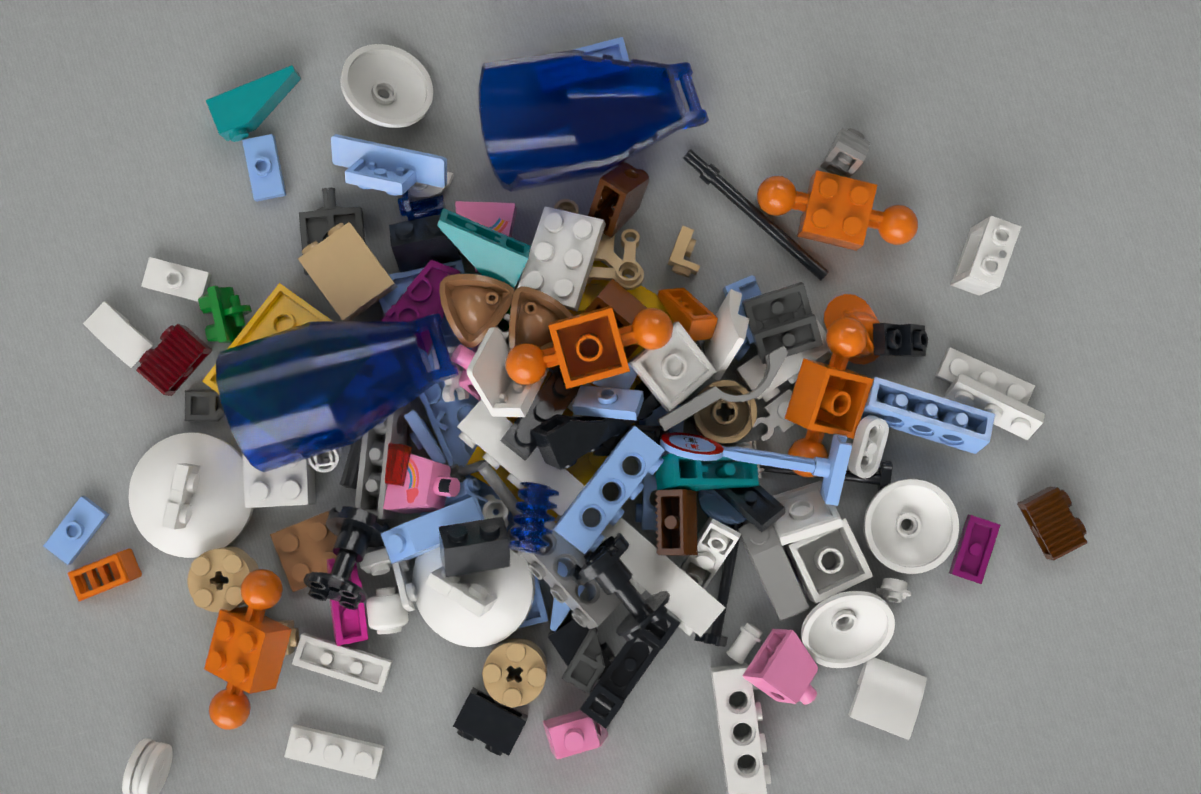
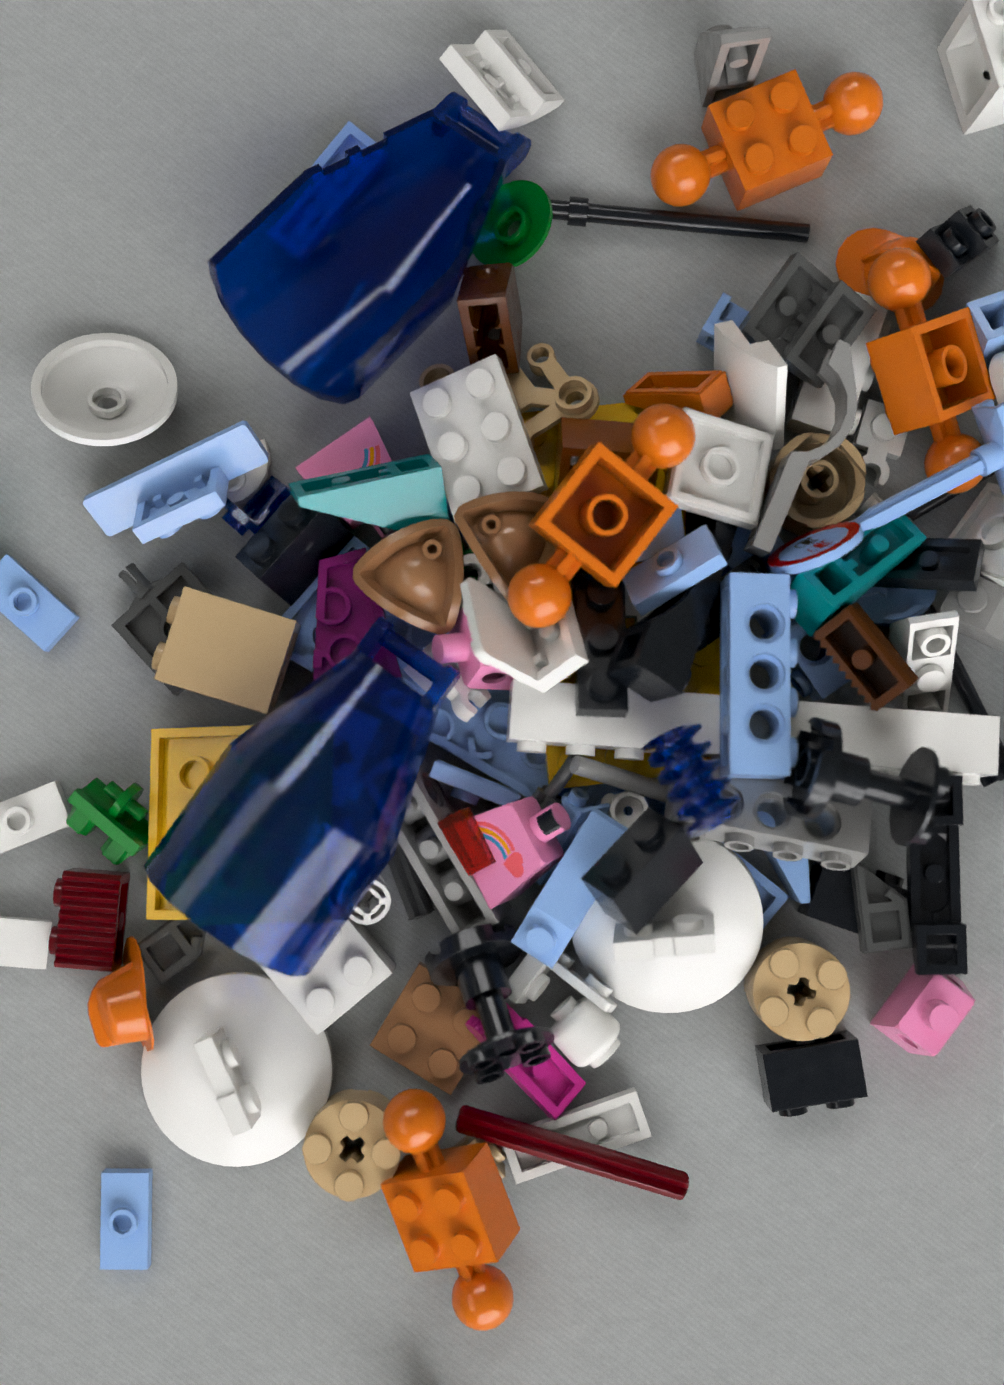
camera: 40 degrees left, 0 degrees up
(123, 568) = (216, 1219): orange slope -> none
(155, 414) = (119, 1003): none -> orange piece
(332, 668) = (572, 1152): none -> dark red axle
(334, 751) = (646, 1251): white plate -> none
(668, 157) = (516, 224): none -> green dish
(683, 247) = (611, 323): tan bracket -> none
(720, 74) = (502, 79): none -> white slope

